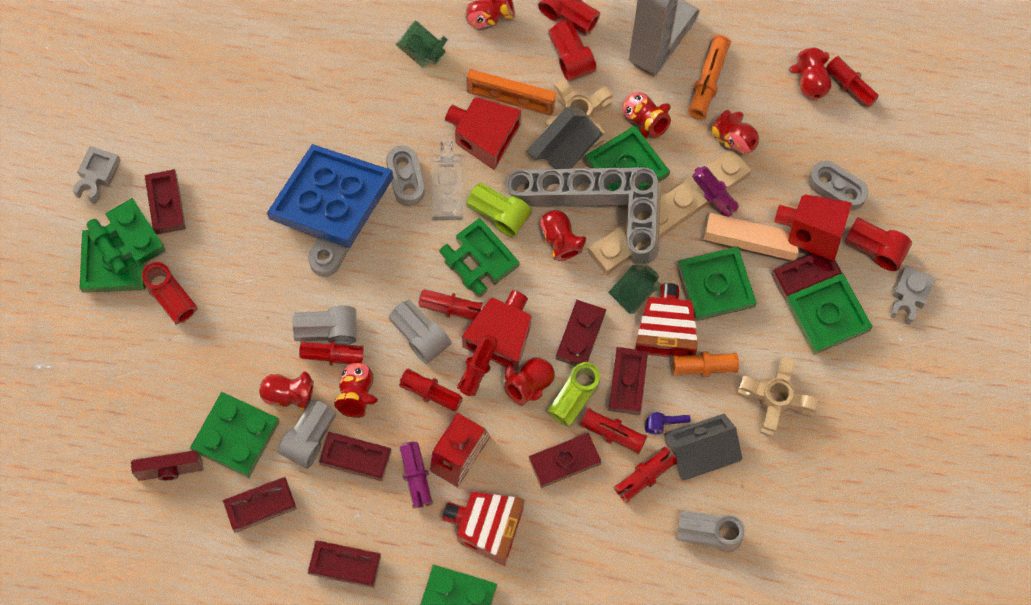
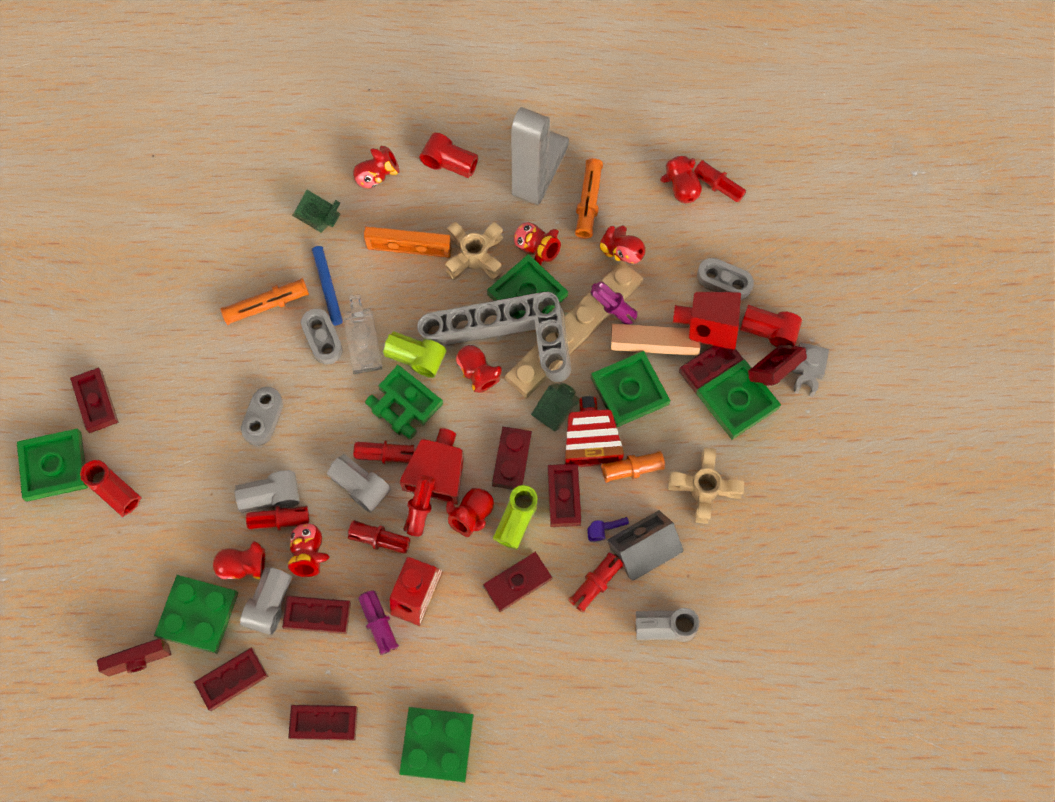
camera: 10 degrees left, 0 degrees up
(96, 169) = (22, 379): light grey plate -> none
(134, 231) = (66, 433): green plate -> none
(318, 135) = (232, 314): none -> orange pin
(330, 195) = (252, 367): blue plate -> none
(420, 123) = (327, 285): none -> blue bar
(485, 129) = (389, 280): red torso -> none
(486, 523) = (453, 657): torso -> none
(566, 139) = (467, 277): dark grey panel -> none
(573, 57) = (461, 200): red piece -> none
(634, 440) = (538, 538): red pin -> none
(876, 284) = (777, 364): none -> dark red plate

